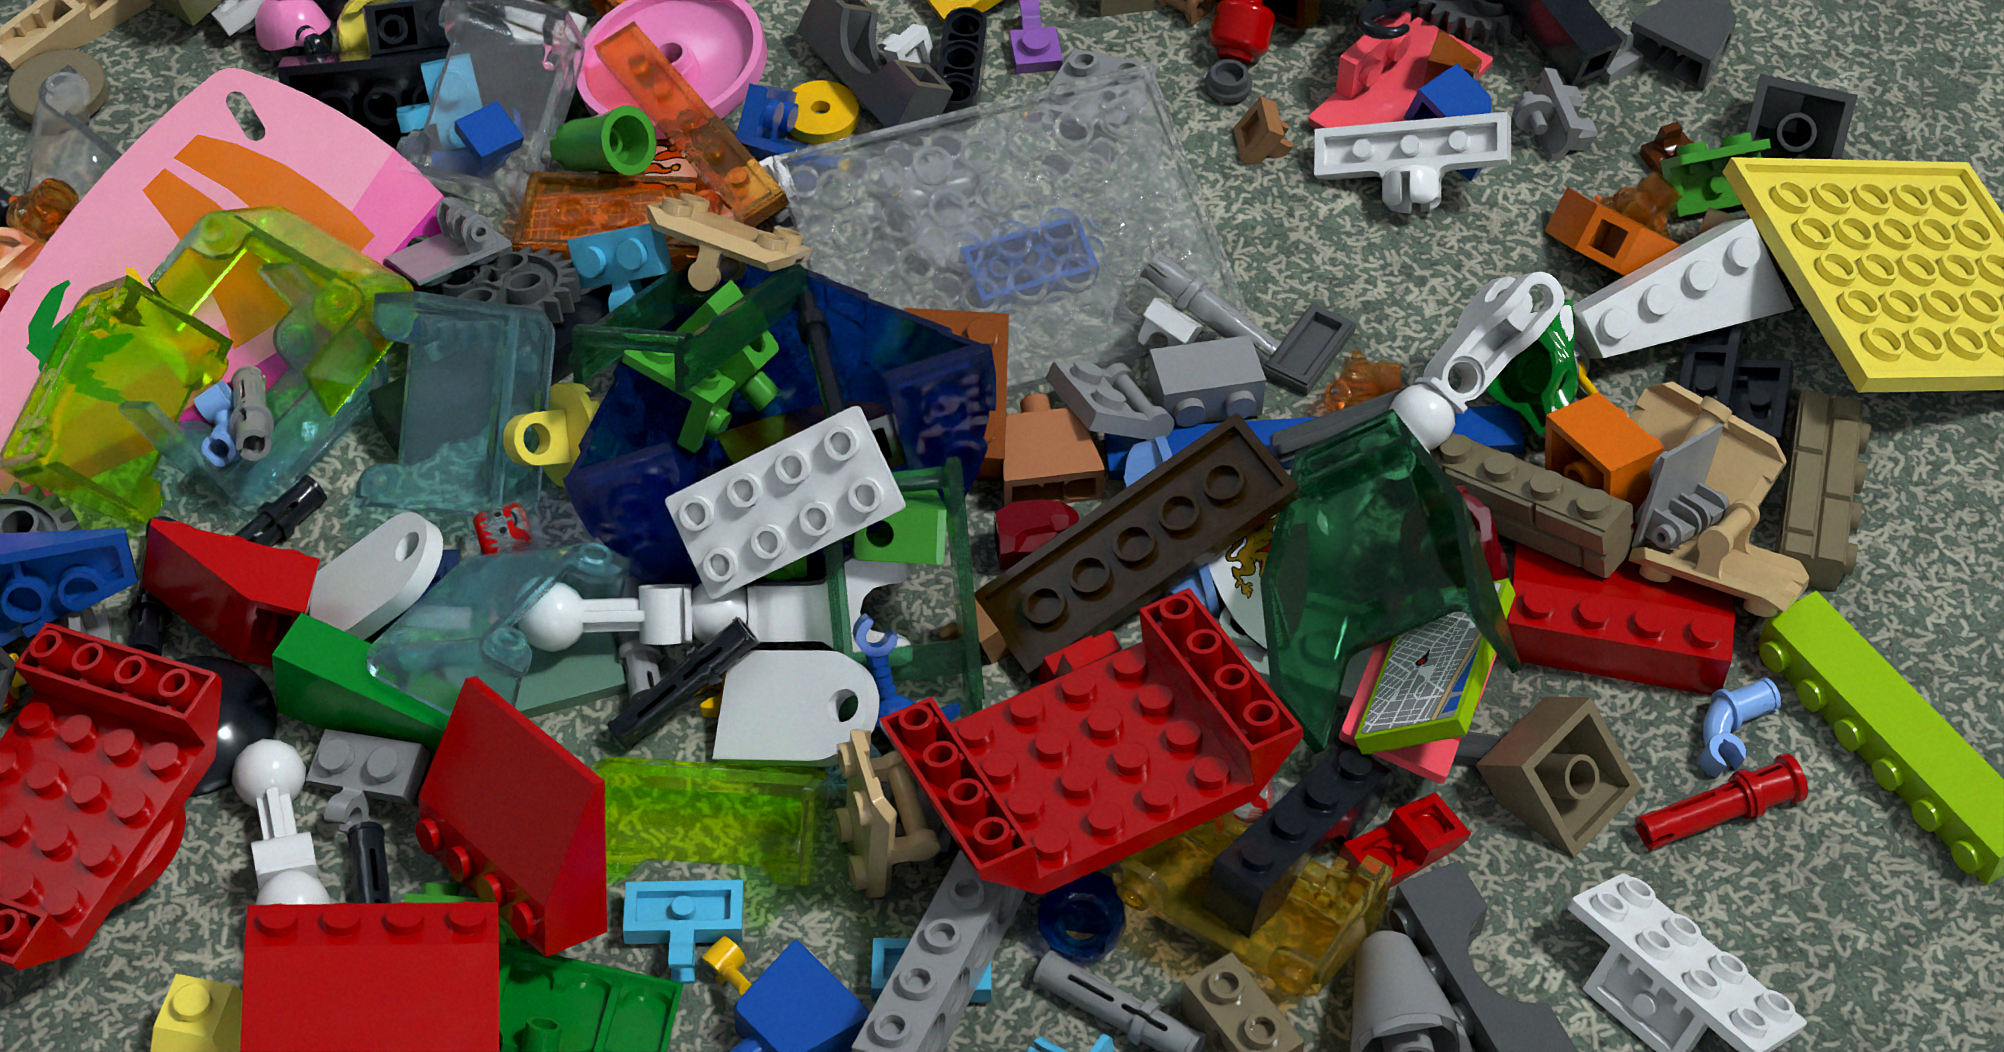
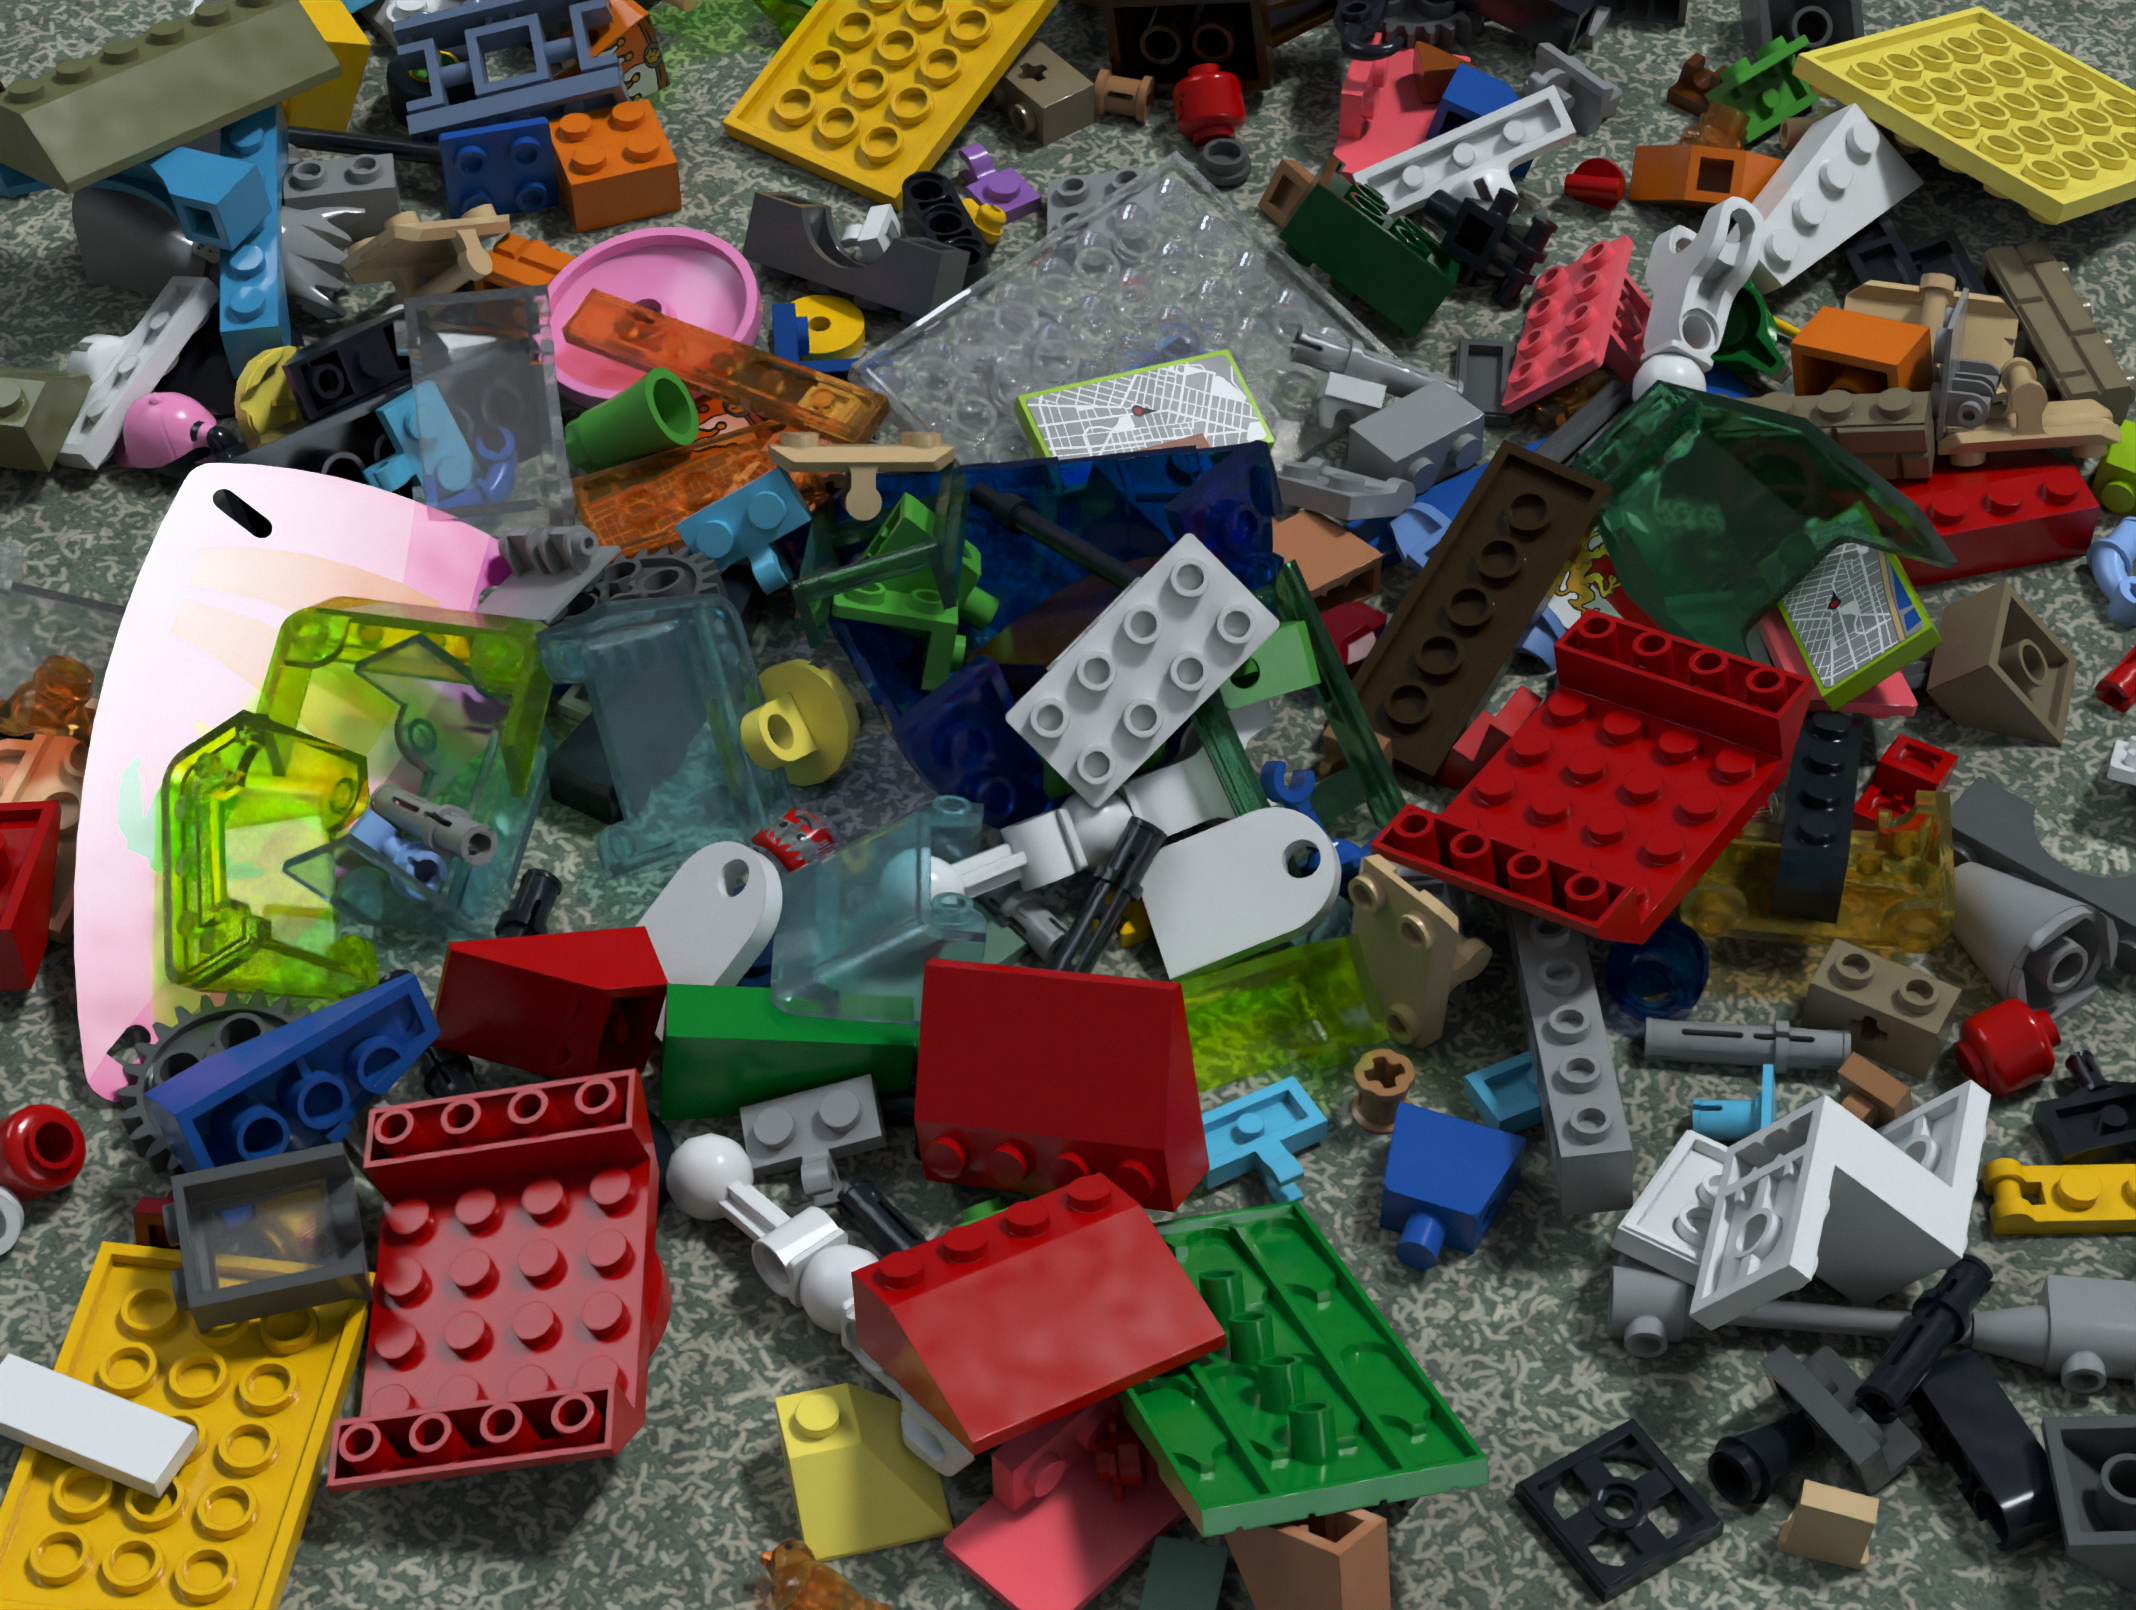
camera: 25 degrees left, 5 degrees down
(488, 133) = (498, 456): blue tile -> none
(726, 959) = (1328, 1156): yellow hand -> none
(798, 906) = (1382, 1083): none -> medium nougat bush
(1000, 66) = (987, 220): none -> yellow arm
(1033, 282) = (1144, 409): none -> tile
(1276, 197) = (1367, 251): none -> dark green wedge
(1386, 228) = (1491, 240): none -> black piece
(1403, 328) = (1579, 322): none -> coral bracket
(1520, 207) = (1596, 183): none -> red plate

